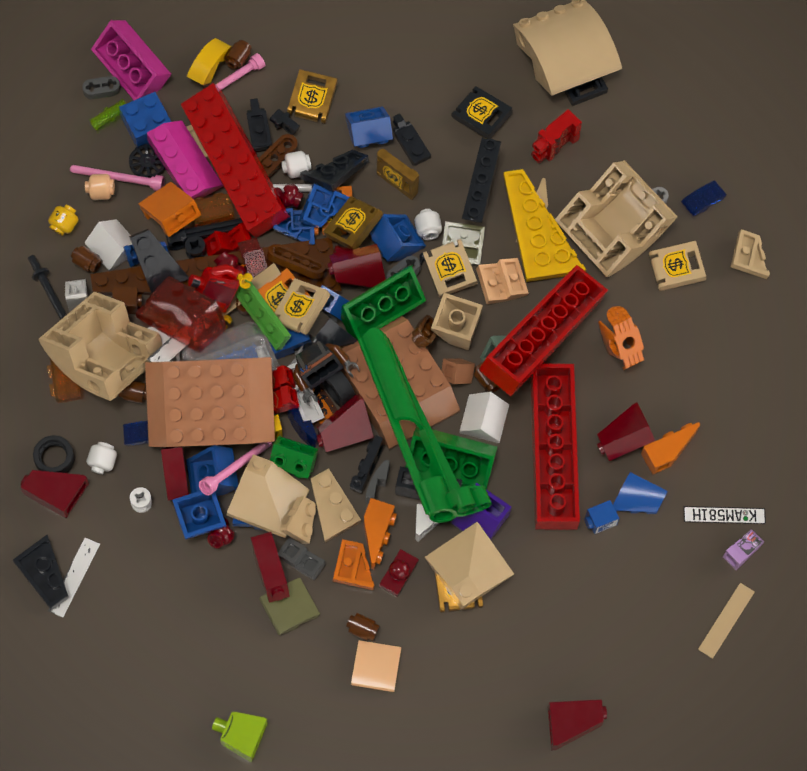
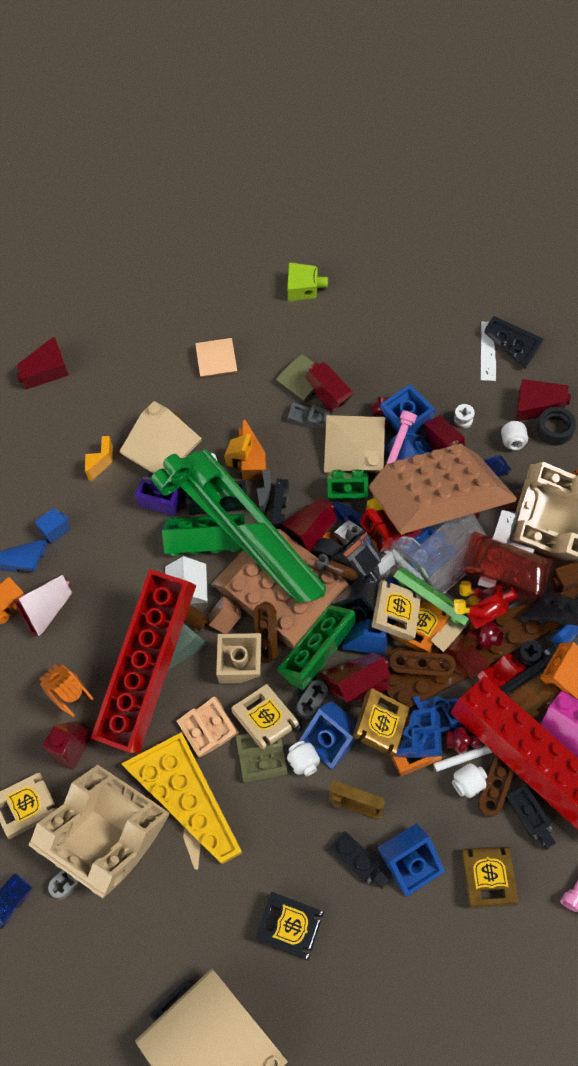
camera: 170 degrees right, 5 degrees down
(282, 120) = (510, 832): black piece -> none
(301, 520) = (319, 436): tan wing -> none
(333, 506) = (298, 465): tan wing -> none
(337, 172) = (424, 783): black wing -> none
(353, 566) = (261, 421): orange wing -> none
(362, 627) = (236, 379): reddish brown brick -> none
(391, 528) = (239, 449): none -> light orange slope
(398, 572) = (221, 431): dark red tile -> none
(481, 180) = (260, 817): black slope -> none
(540, 574) = (98, 462): none -> light orange slope
(555, 448) = (107, 564): red brick -> none
(557, 134) = (193, 913): red hips -> none
(630, 291) = (67, 743): none -> dark red slope

